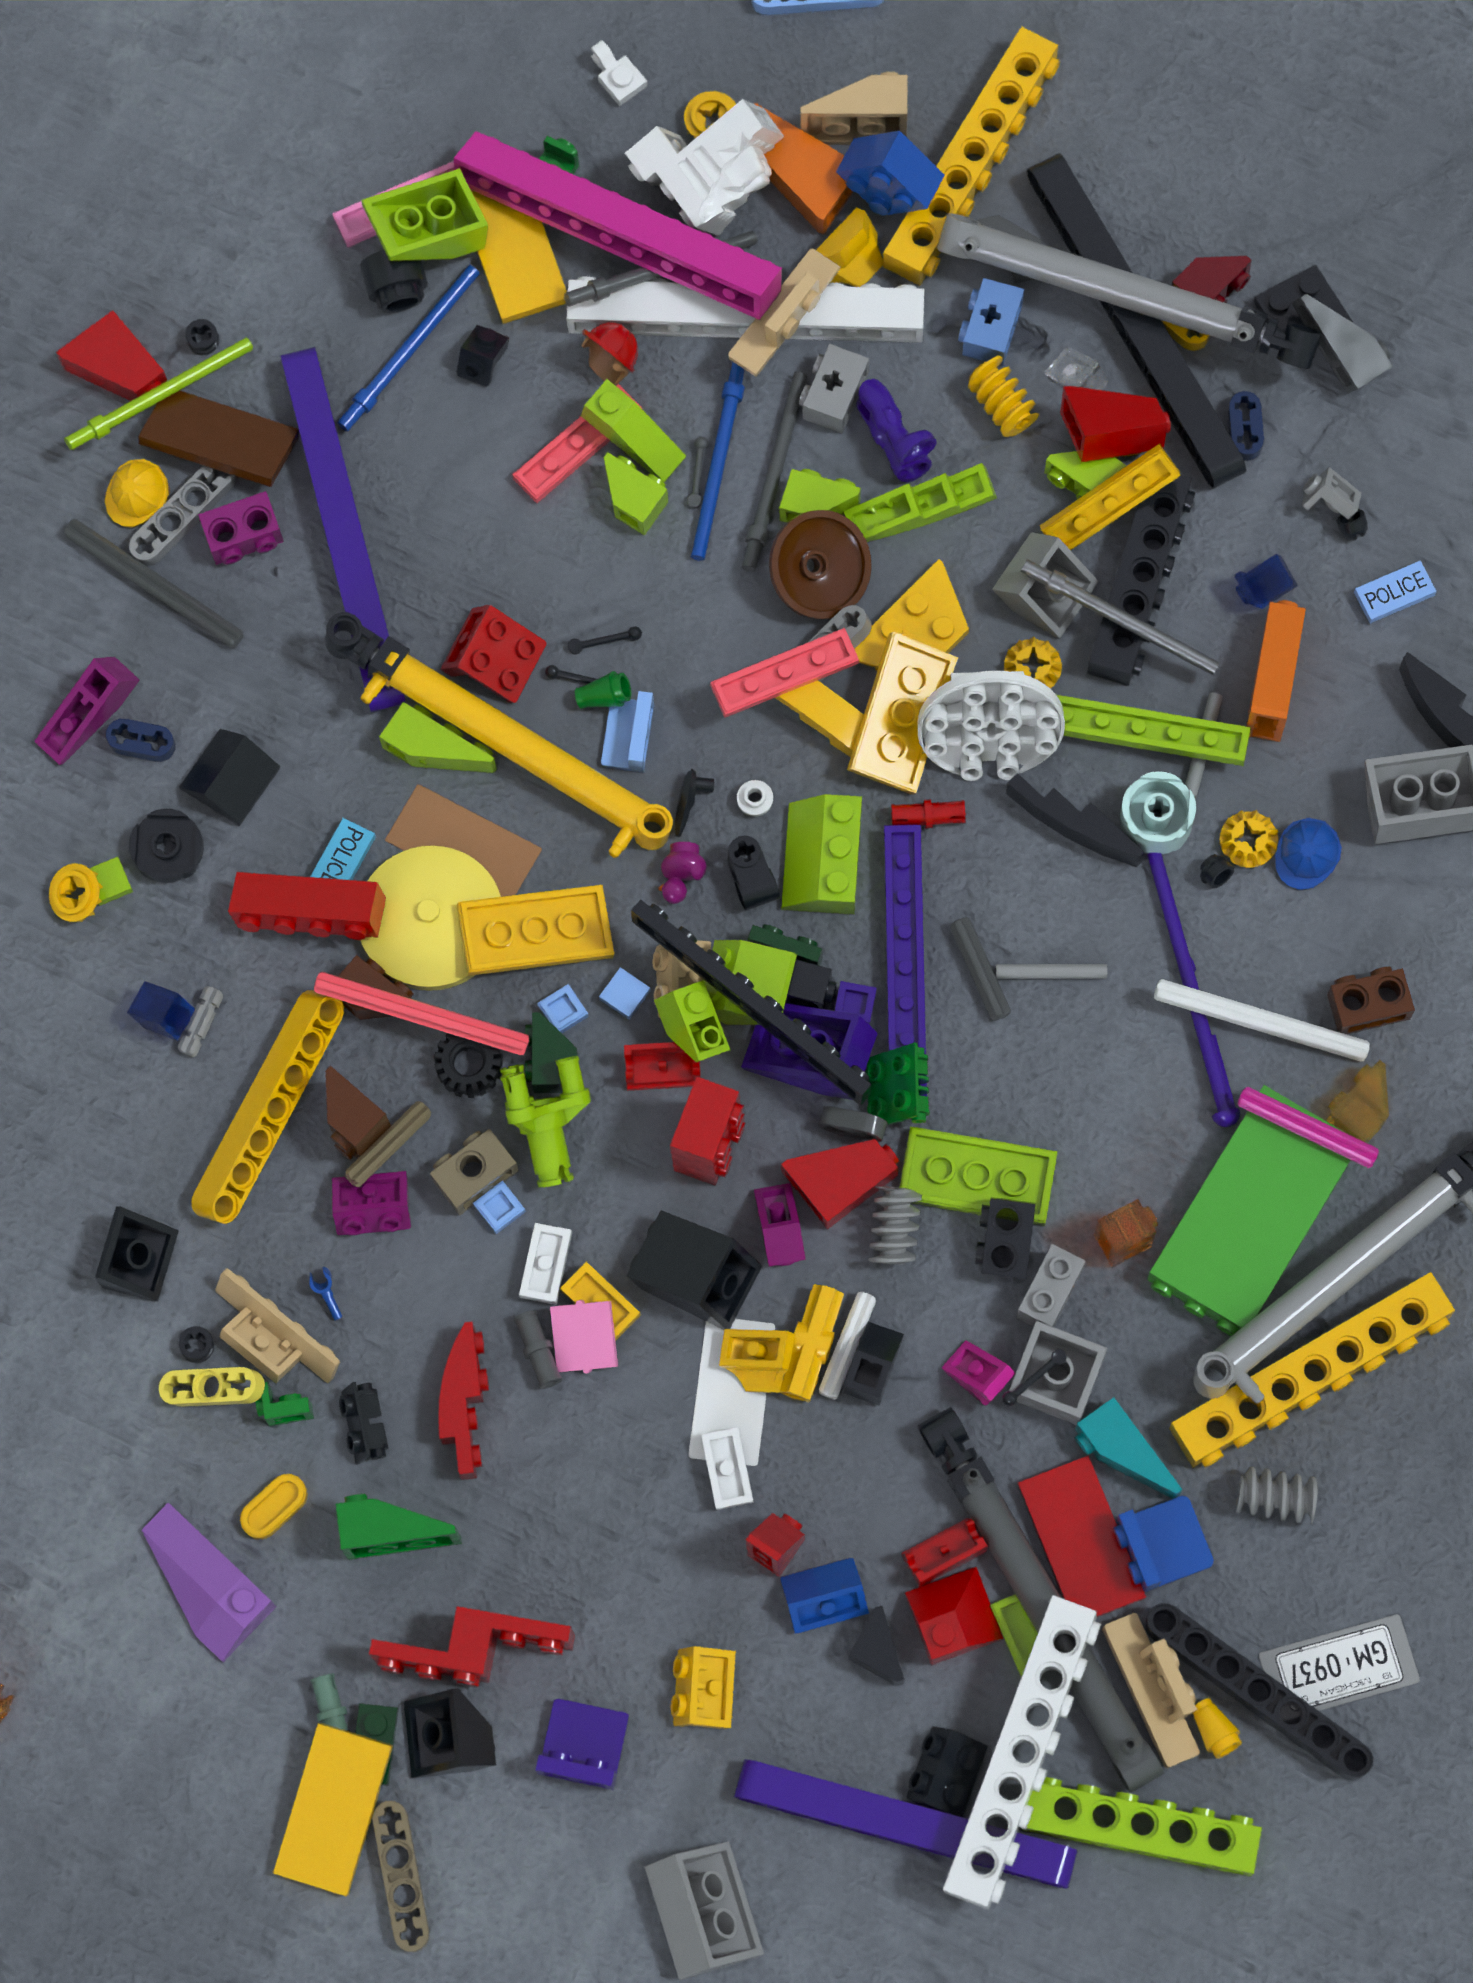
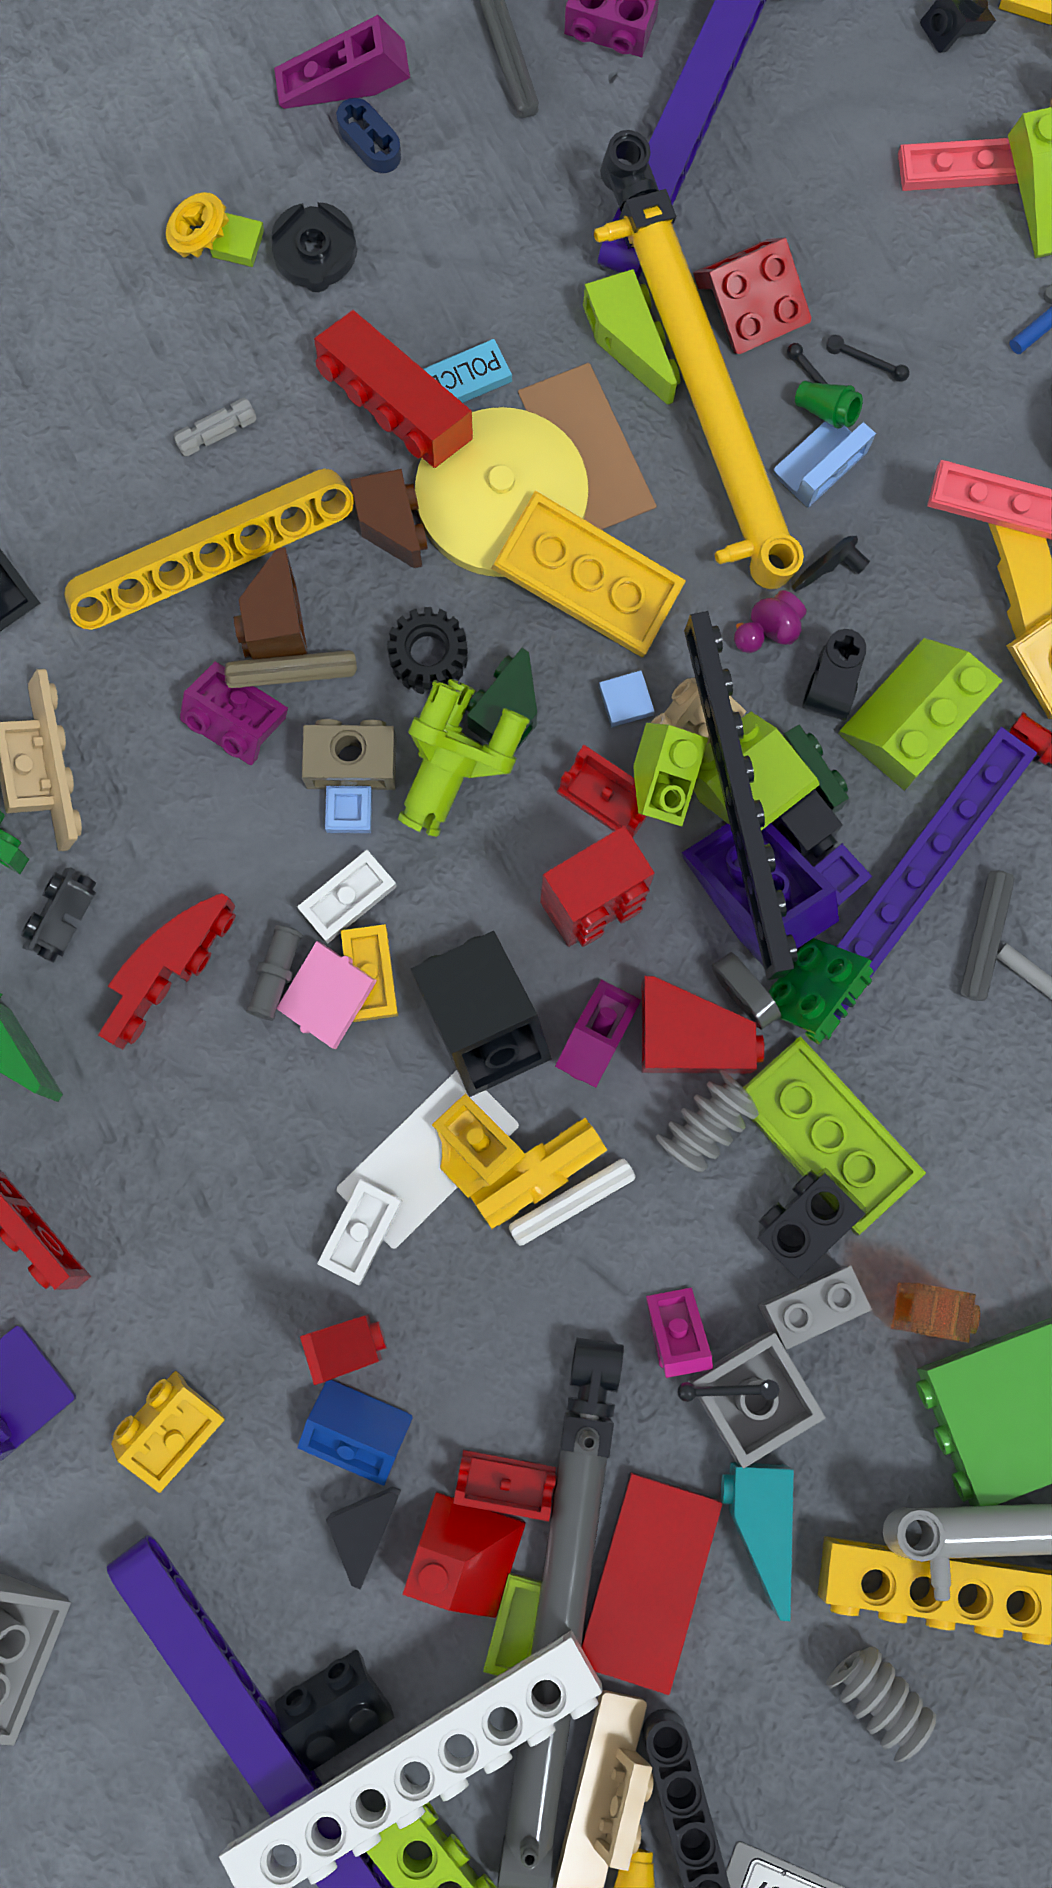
camera: 30 degrees right, 5 degrees up
(161, 1010) = (183, 386): clear blue brick -> none
(230, 775) = (424, 228): black slope -> none
(326, 1293) = (124, 762): blue hand -> none
(421, 1013) = (416, 568): coral axle -> none
(563, 1009) = (556, 669): light blue tile -> none
(634, 496) = (1003, 245): lime slope -> none
(755, 808) = (892, 620): white plate -> none
(873, 1363) = (583, 1241): black slope -> none
(1163, 1543) = (728, 1655): blue bracket -> none

